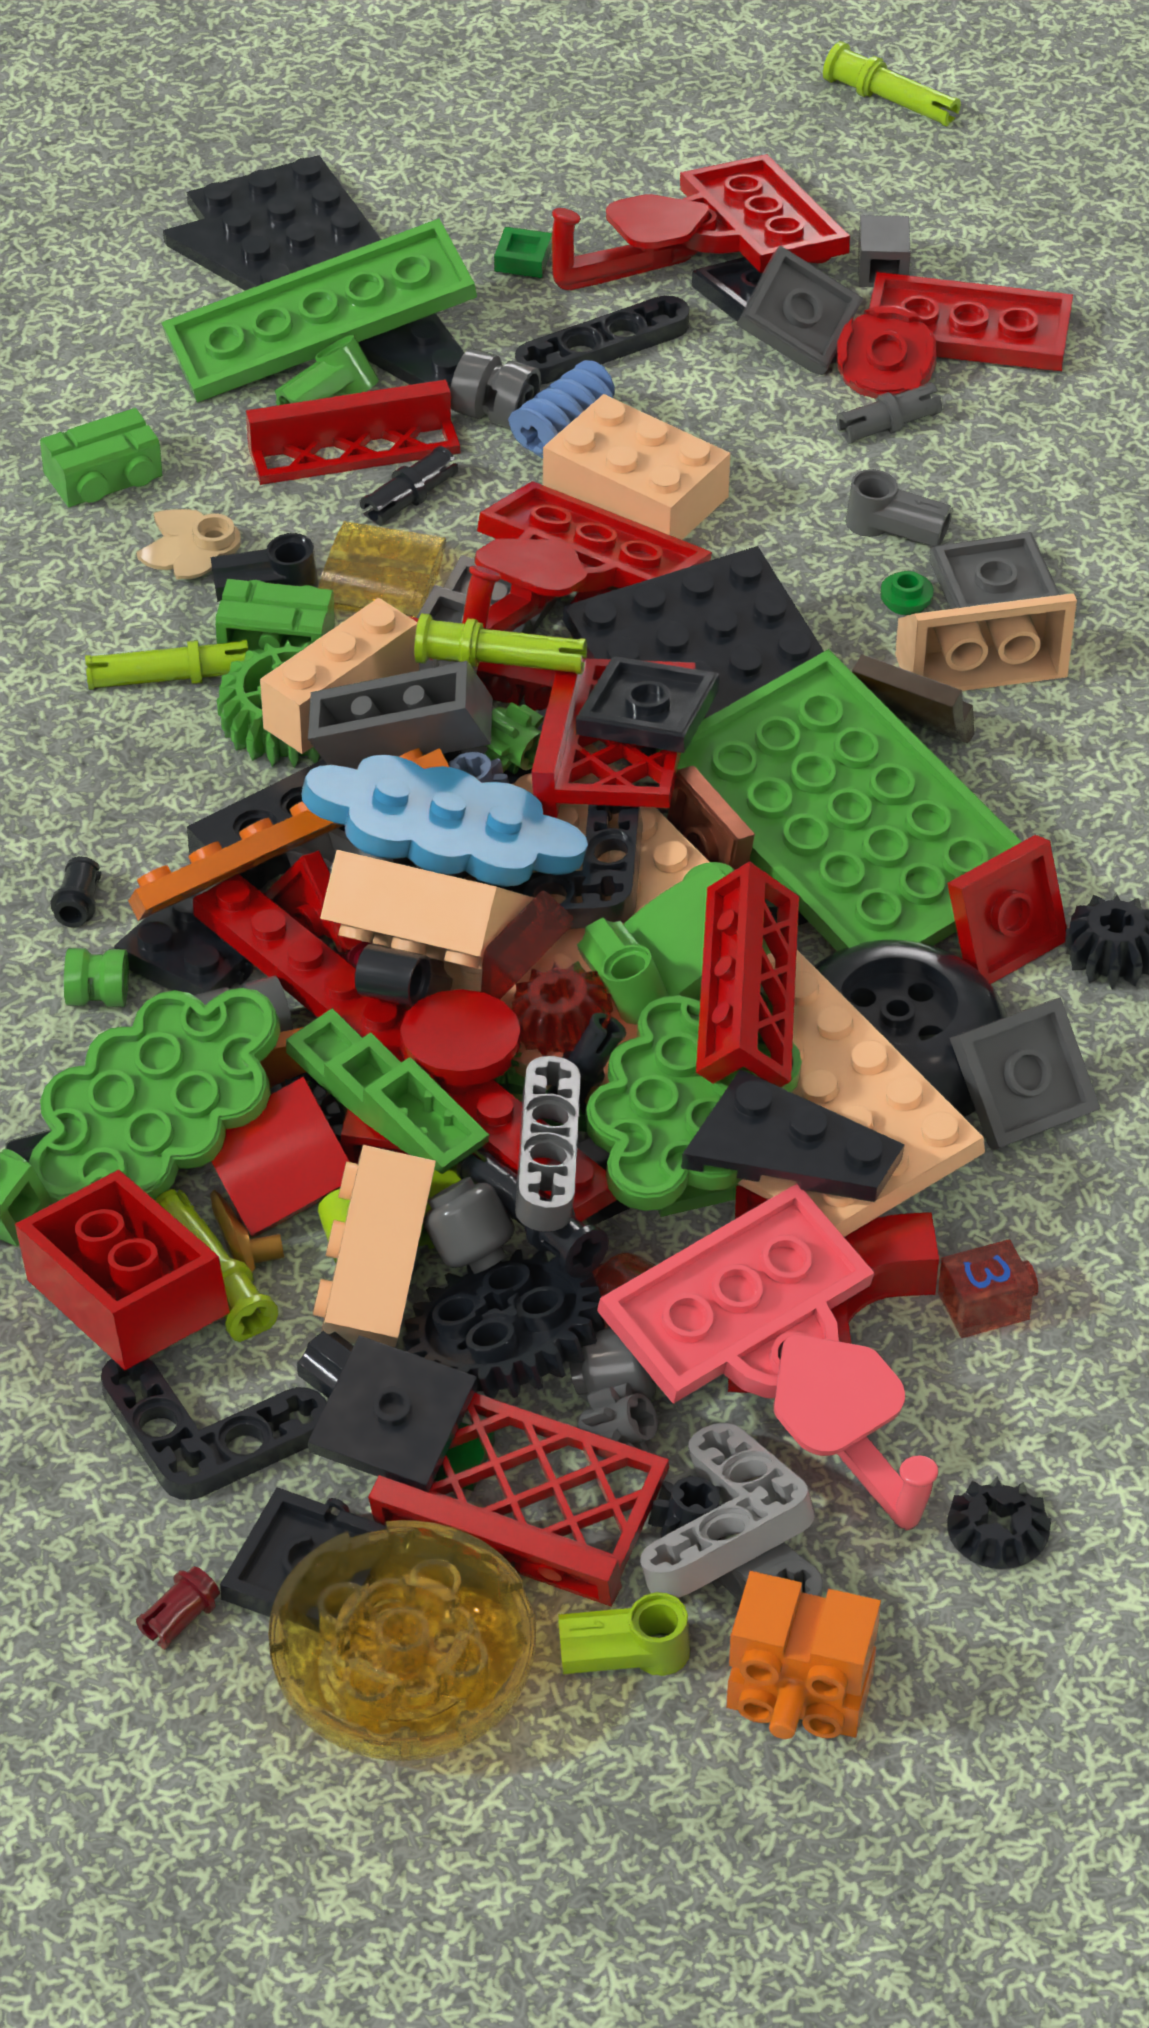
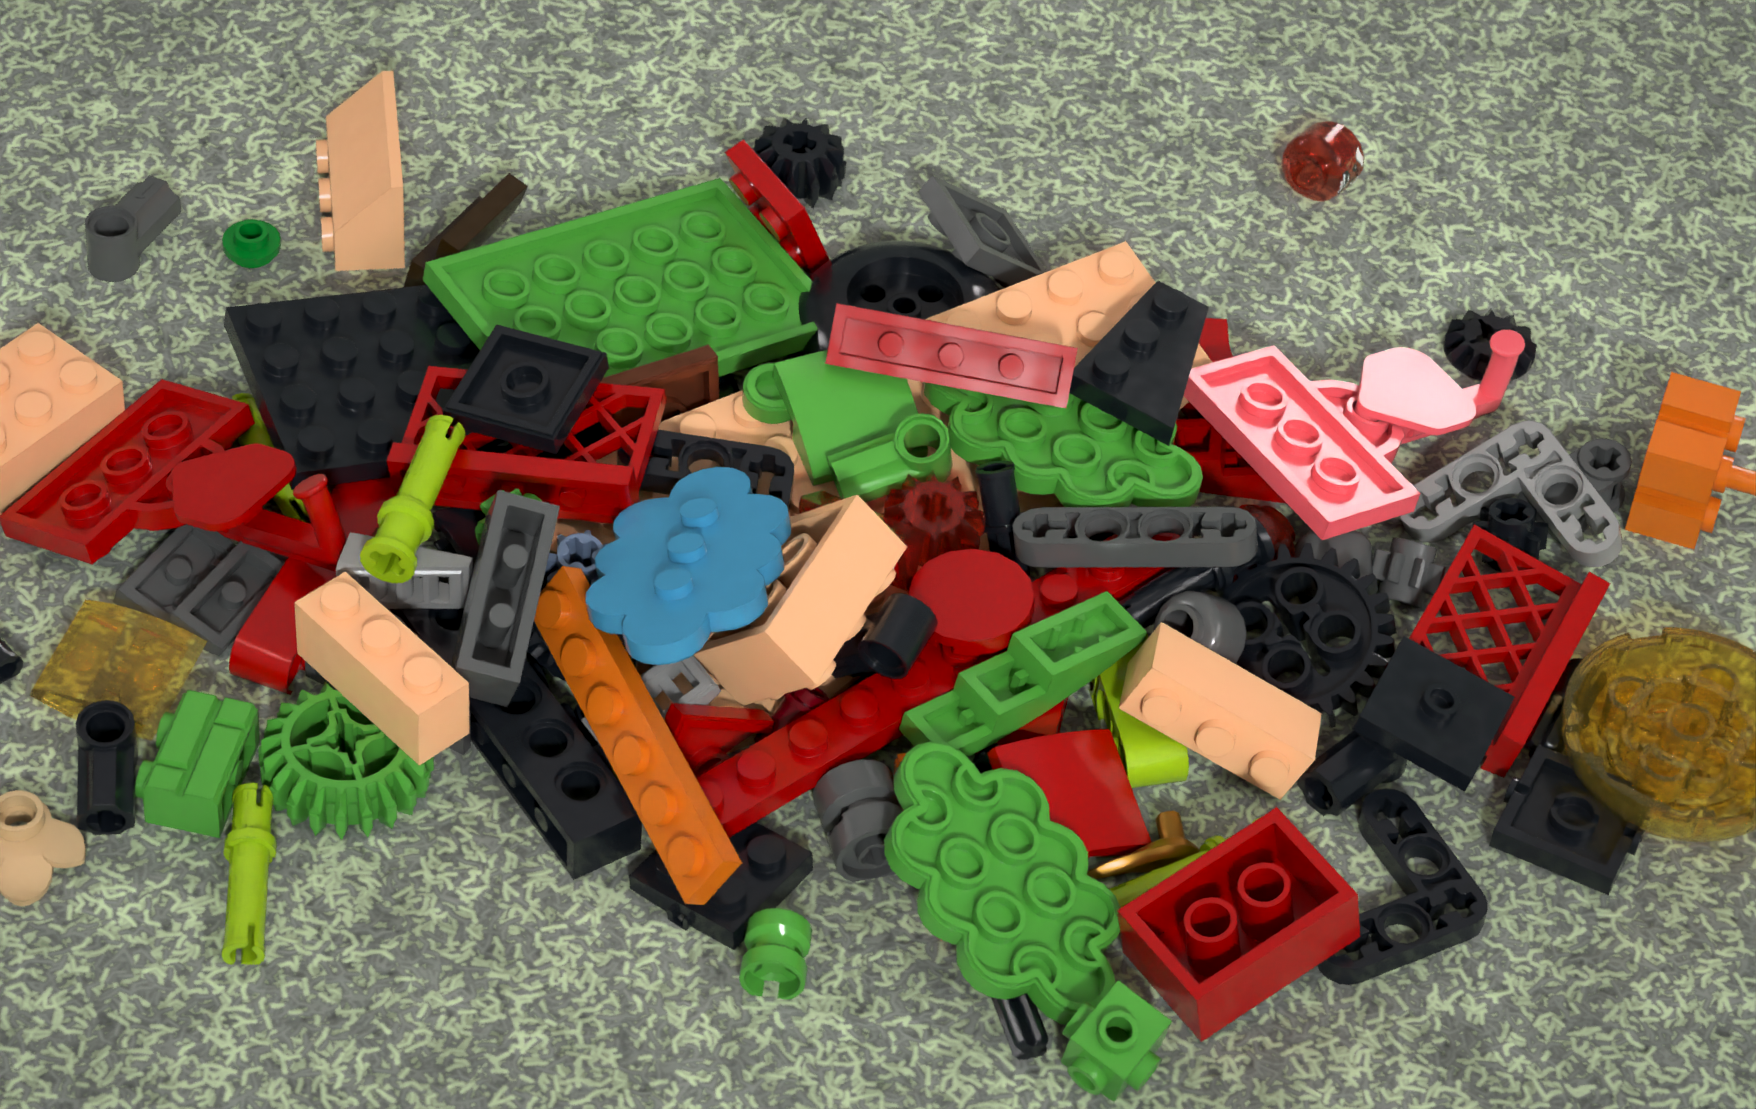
camera: 90 degrees left, 0 degrees up
(76, 892) = (627, 974): black pin -> none
(179, 1606) = (1628, 921): dark red pin -> none
(624, 1639) = (1645, 584): lime piece -> none
(987, 1288) = (1244, 300): clear red brick -> none
(992, 571) = (250, 173): dark grey plate -> none

